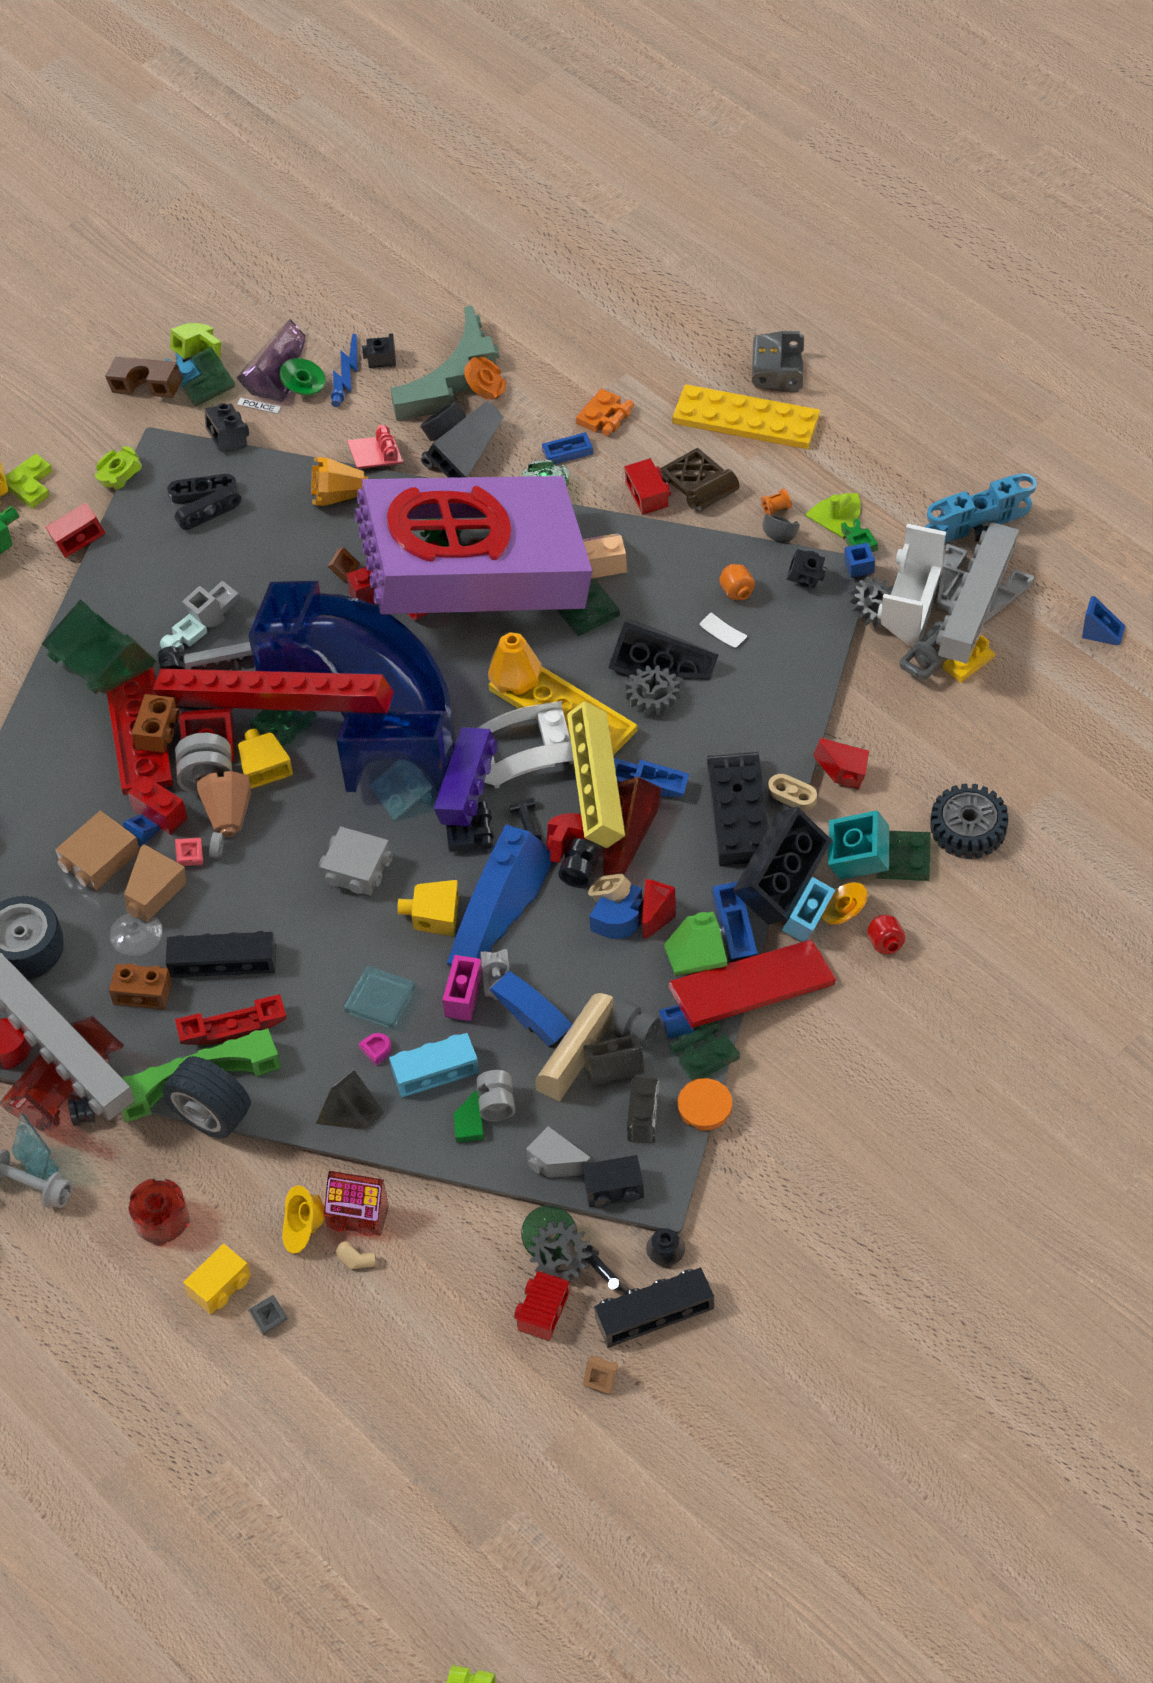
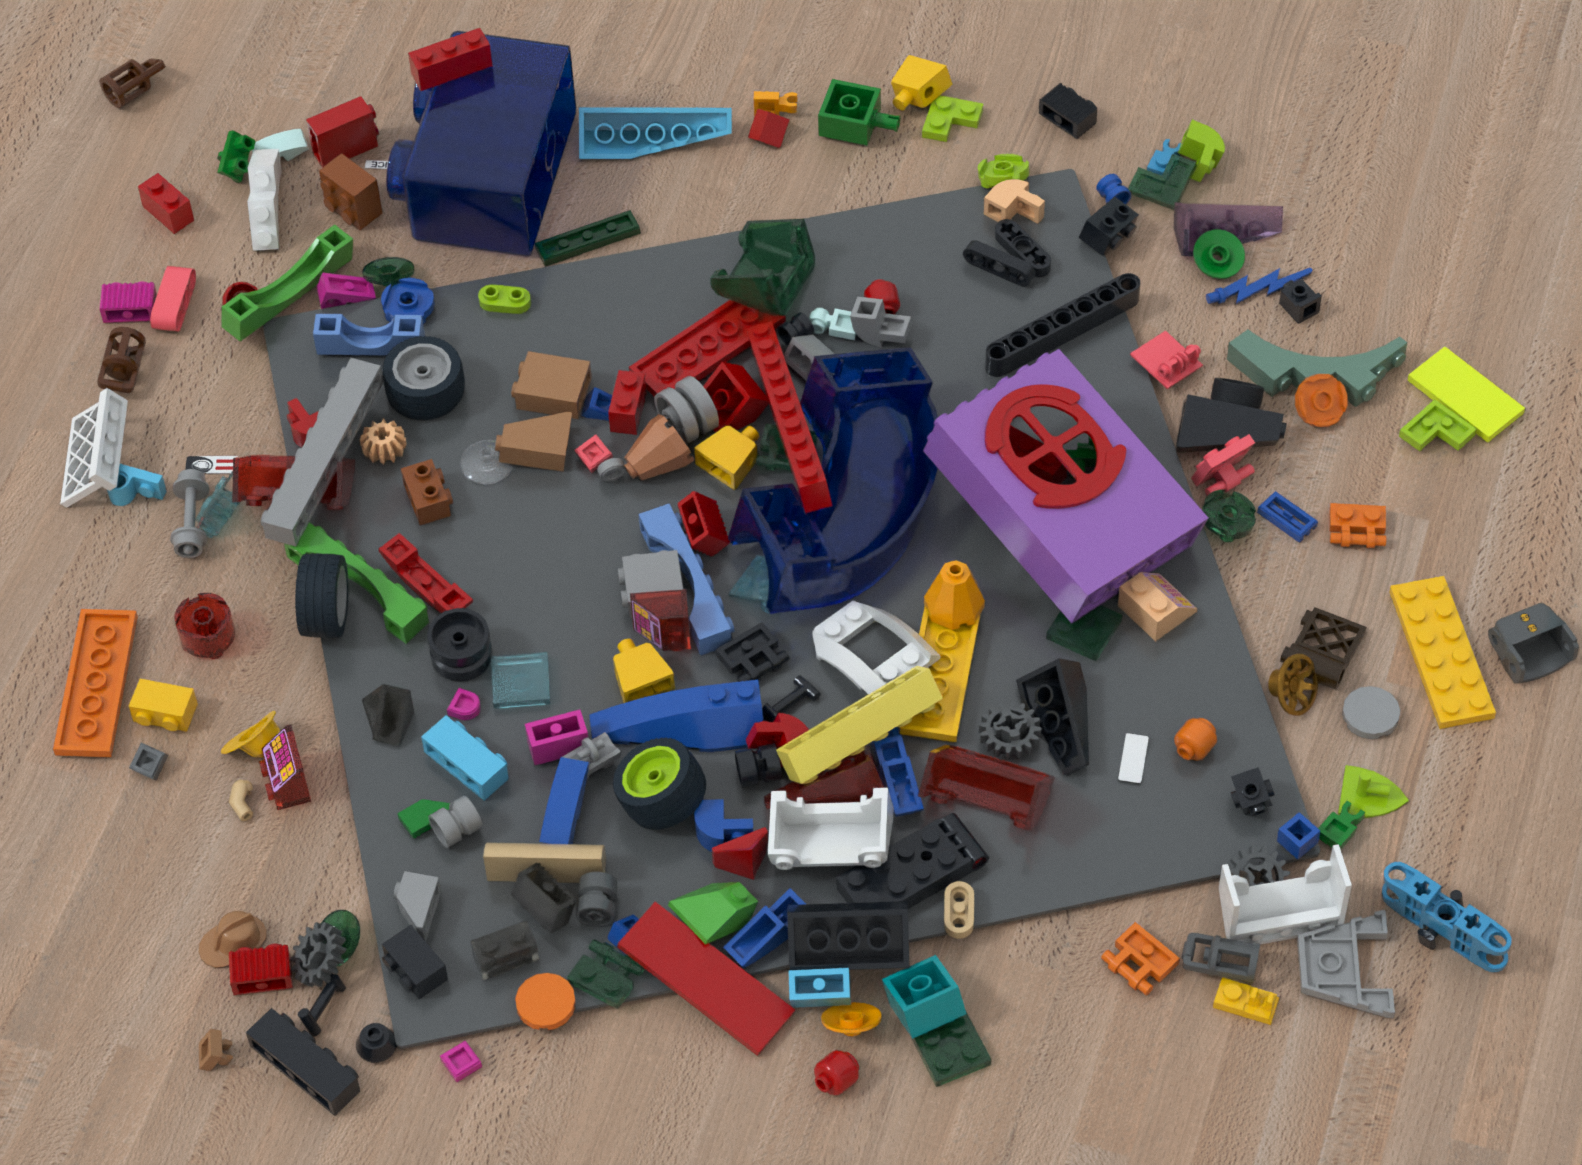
camera: 60 degrees right, 0 degrees up
(65, 995) = (383, 441): none -> light nougat gear
(75, 530) = (906, 179): brick -> none
(88, 404) = (1068, 110): none -> black brick
(128, 373) = (1132, 135): reddish brown arch -> none
(153, 1326) = (95, 683): none -> orange plate
(154, 470) = (1012, 198): none -> light nougat brick
(155, 723) = (708, 348): dark orange brick -> none
(180, 590) = (887, 291): none -> red head
(188, 412) = (1111, 186): none -> blue wheel
(221, 954) = (494, 534): black brick -> none
(258, 405) = (1167, 241): white sticker -> none
(299, 495) = (1062, 325): none -> black beam
(312, 834) = (707, 622): none -> medium blue arch
(321, 802) = (703, 523): none -> red brick
(321, 1020) = (459, 644): none -> black wheel
(334, 481) = (1093, 343): light orange cone -> none
(400, 865) = (662, 618): none -> clear red slope
(465, 776) = (792, 619): dark purple brick -> none
(493, 1321) = (233, 932): none -> medium nougat piece
(501, 454) = (1220, 465): none -> coral plate
(534, 301) = (1466, 393): none -> neon yellow tile
(549, 327) = (1437, 421): none -> lime plate
(560, 931) = (659, 783): none -> black wheel
(610, 887) = (739, 803): tan plate -> none
(647, 486) = (1279, 606): red brick -> none
(683, 833) = (830, 831): none -> white windscreen
(700, 718) = (986, 783): none -> clear red windscreen
(718, 1192) = (461, 1061): none -> dark pink tile
(721, 510) = (1291, 683): none -> pearl gold wheel
(771, 476) = (1371, 712): none -> light grey tile
(776, 502) = (1337, 729): orange bush -> none
(779, 528) = (1302, 746): dark grey hair -> none
(842, 762) = (1026, 943): red slope -> none
(895, 698) = (1146, 952): none -> orange plate
(969, 821) = (1021, 1108): wheel -> none
(977, 592) = (1321, 961): light grey brick -> none
(1102, 624) = (1372, 1105): blue slope -> none

